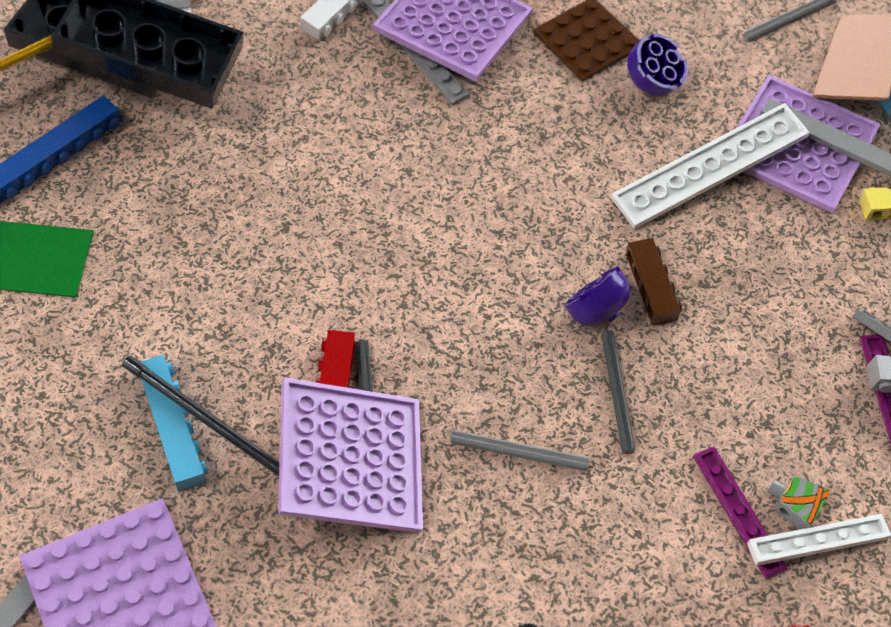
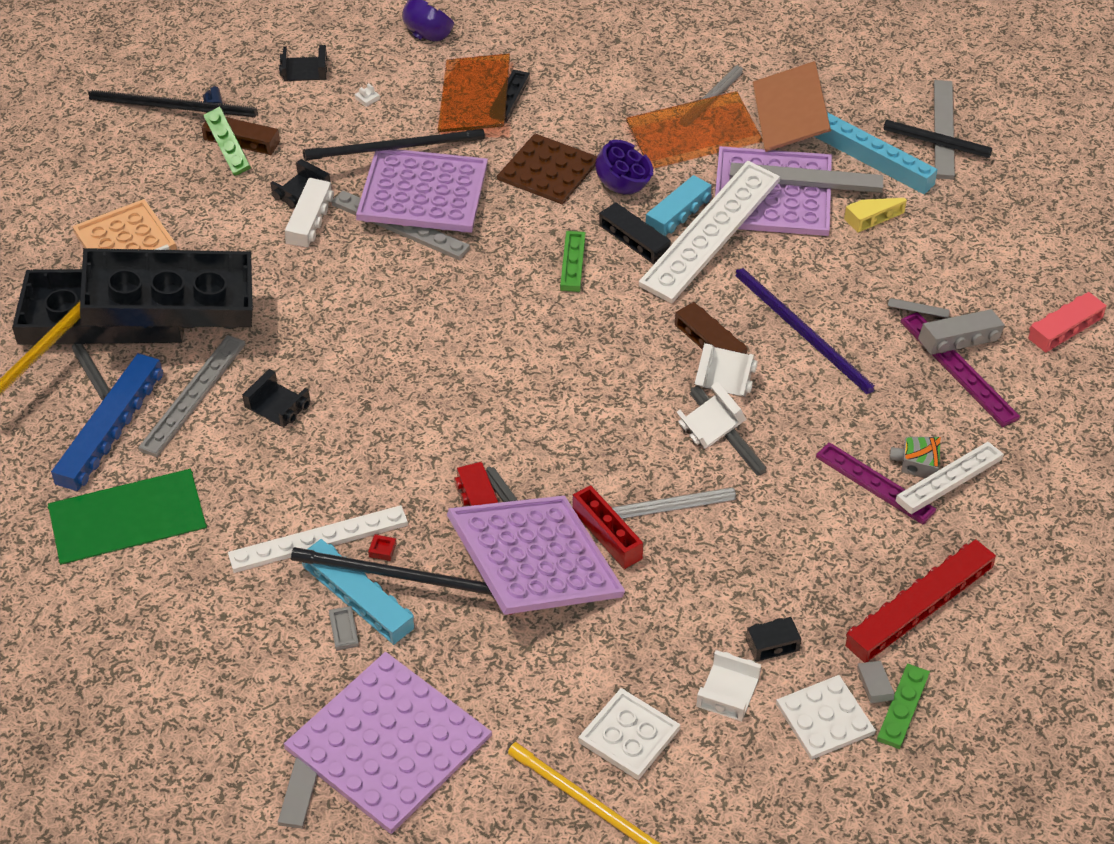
camera: 20 degrees left, 10 degrees down
(59, 106) = (91, 370): none -> dark grey axle
(133, 155) = (191, 396): none -> light grey tile
(140, 455) = (343, 628): none -> light grey tile
(174, 350) = (332, 534): none -> white plate
(204, 189) = (275, 401): none -> black panel
(219, 384) = (382, 547): none -> red plate
(440, 453) = (608, 527): none -> red brick
(559, 147) = (572, 261): none -> bright green plate
(600, 299) = (676, 362): dark purple cylinder -> none
(605, 374) = (712, 418): none -> white panel
(635, 138) = (634, 232): none -> black brick
(646, 326) = (726, 367): none -> white panel
(694, 125) = (679, 205): none -> medium azure brick
(753, 47) = (693, 129): none -> clear orange piece
(755, 315) = (805, 331): none -> dark purple axle

